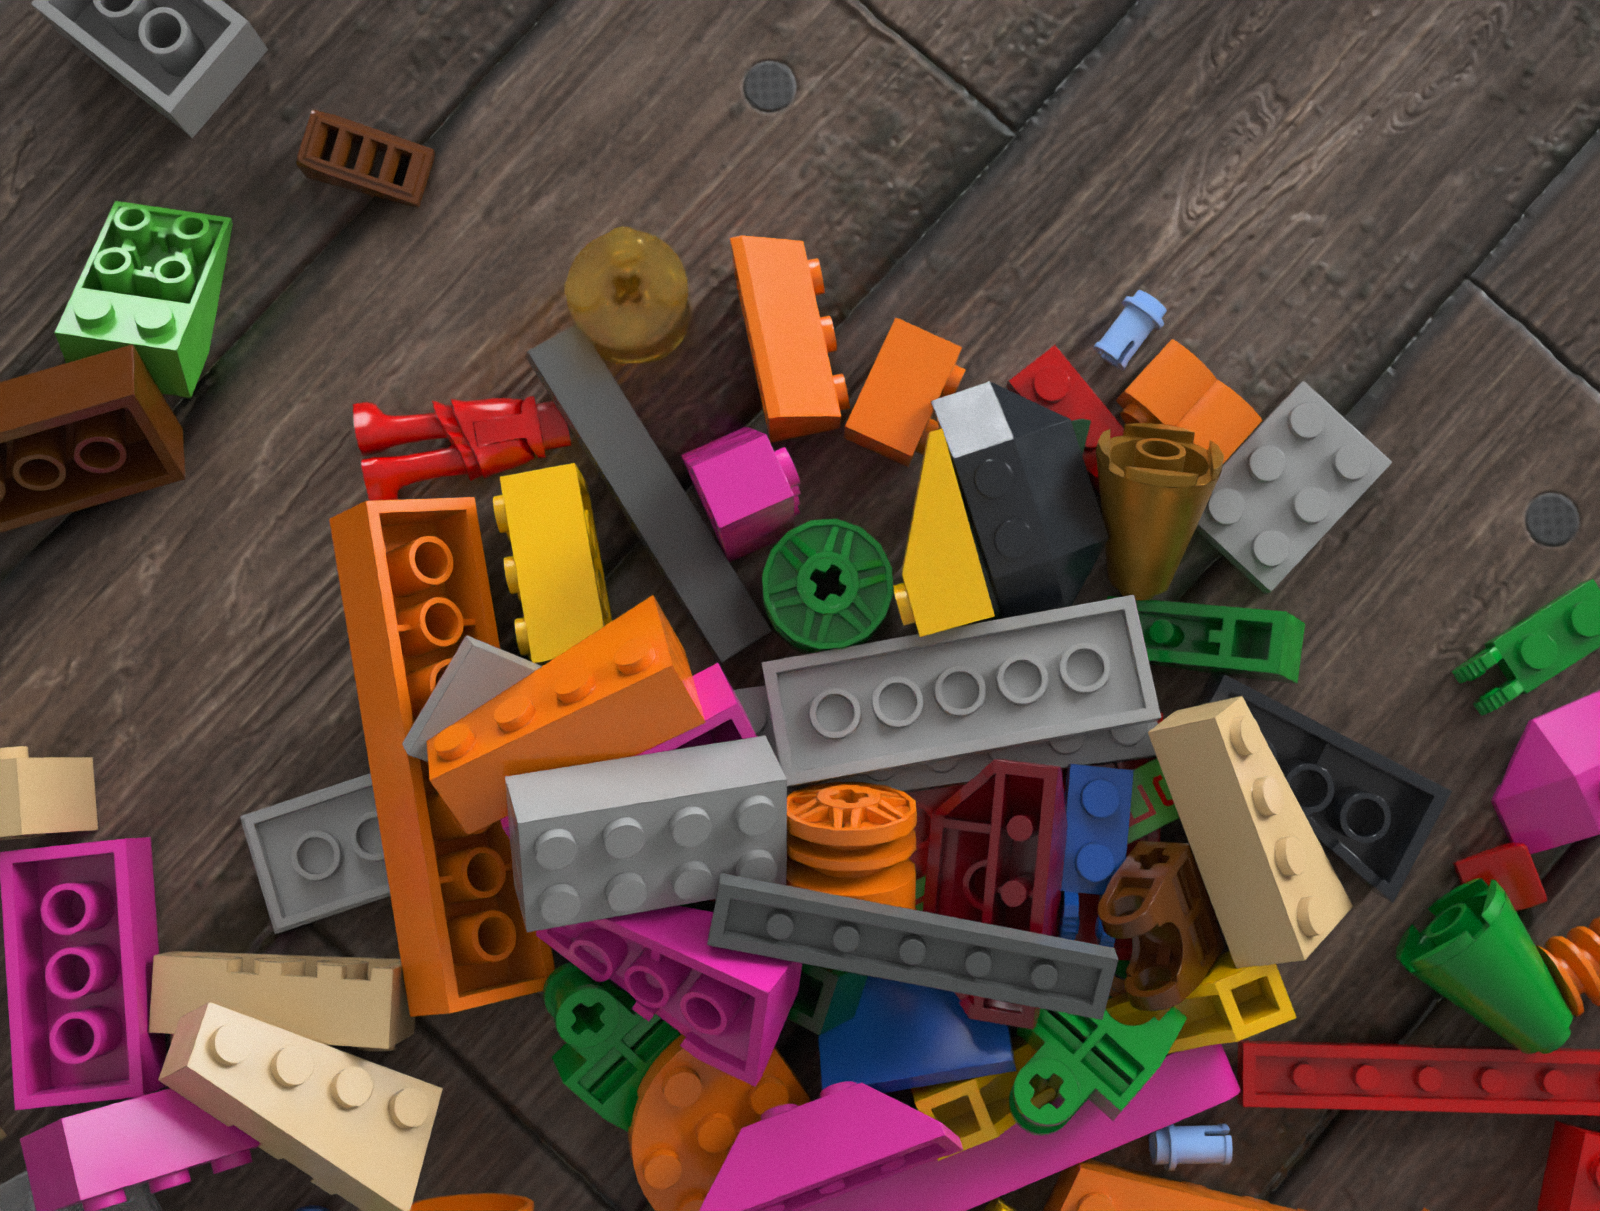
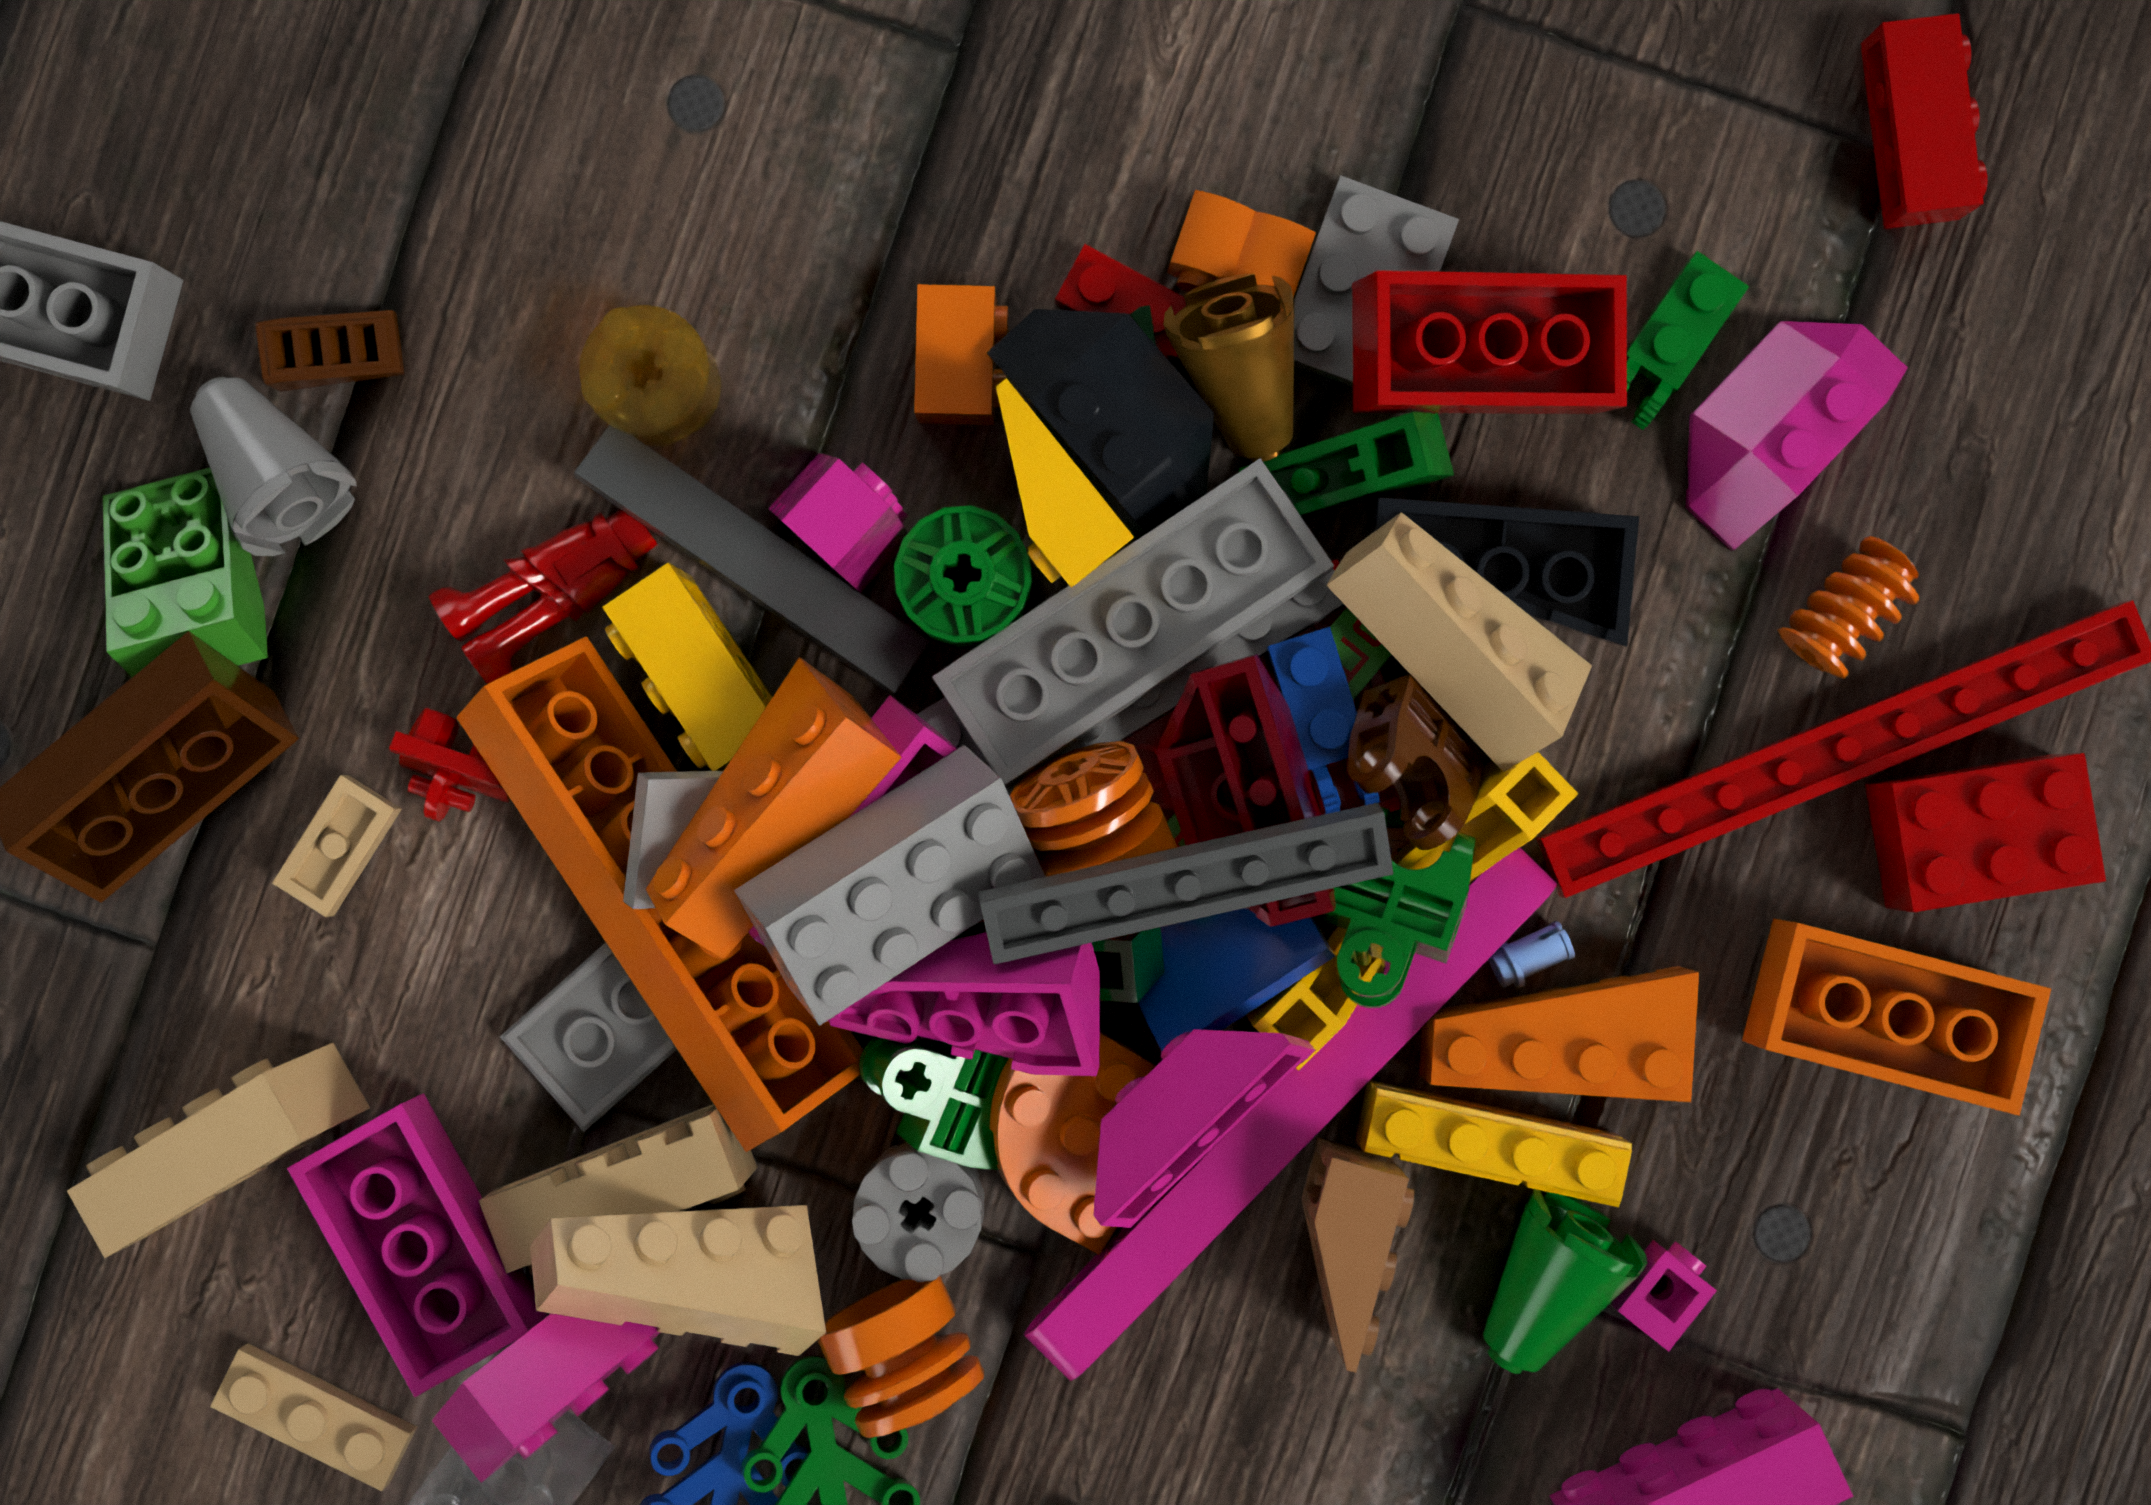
camera: 20 degrees left, 5 degrees up
(175, 586) = (337, 845): none -> tan plate
(265, 237) = (267, 469): none -> light grey cone
(292, 541) = (430, 753): none -> red hips
(530, 1172) = (913, 1246): none -> light grey brick
(788, 336) = (822, 347): orange slope -> none
(1130, 329) = (1152, 196): light blue pin -> none
(1378, 580) = (1489, 342): none -> red brick
(1488, 967) = (1743, 668): green cone -> none
(1511, 868) = (1723, 581): red slope -> none

